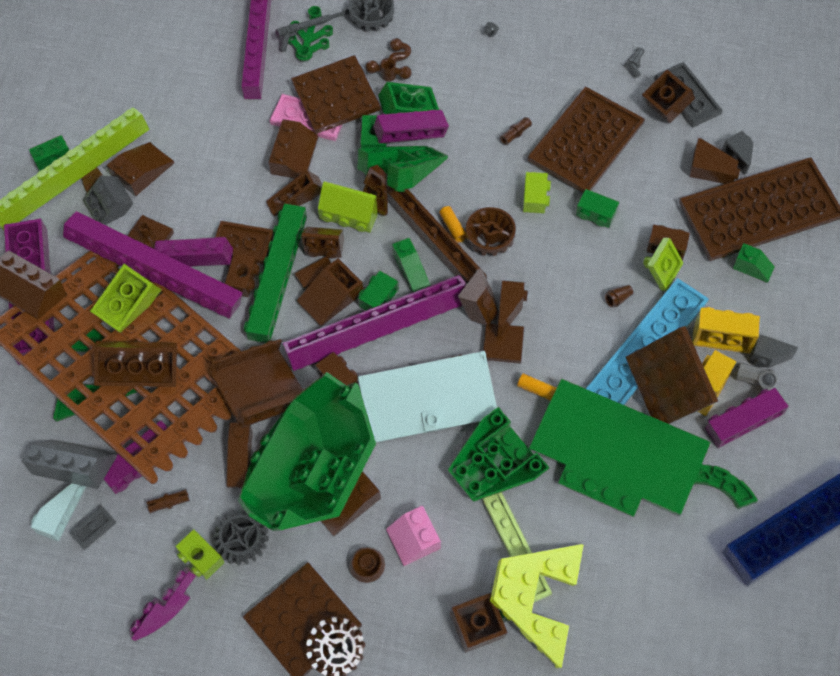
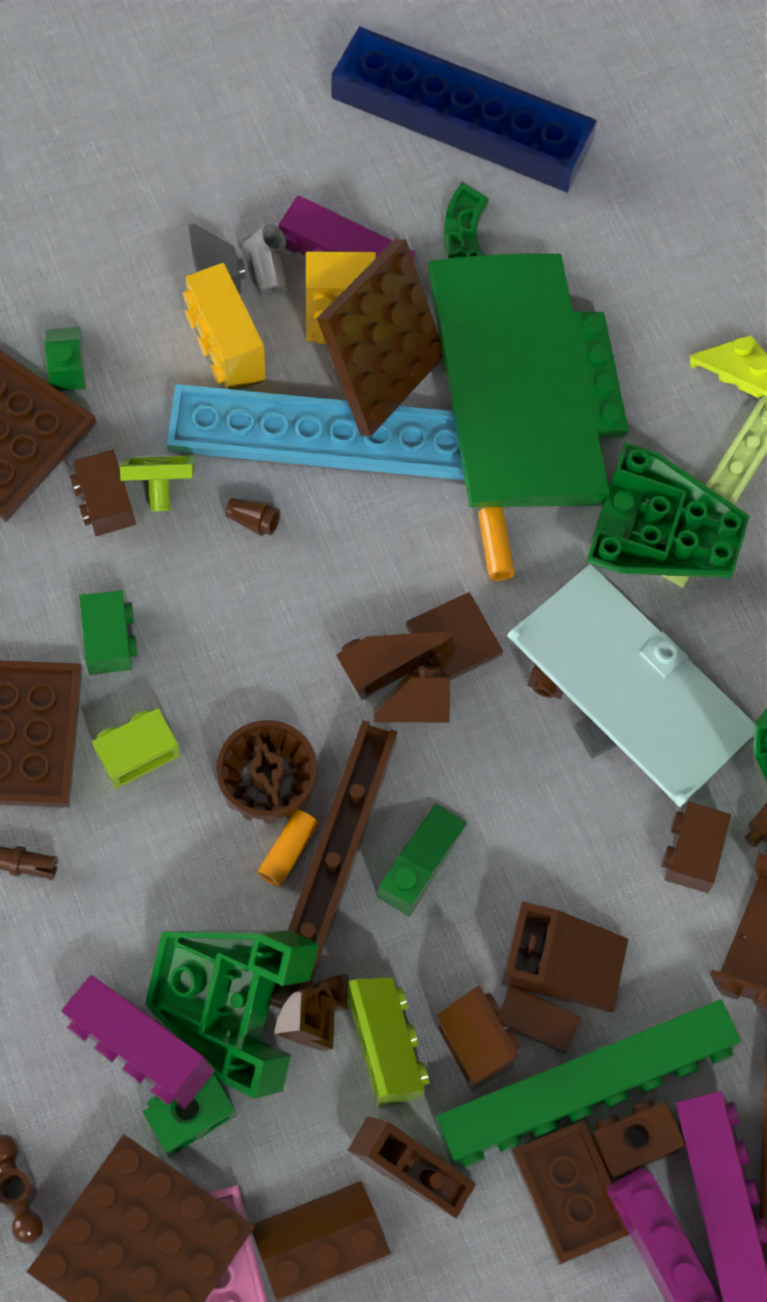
camera: 130 degrees left, 5 degrees up
(374, 323) = (569, 841): magenta brick -> none
(378, 292) = (507, 880): green brick -> none
(406, 98) = (74, 1095): green slope -> none

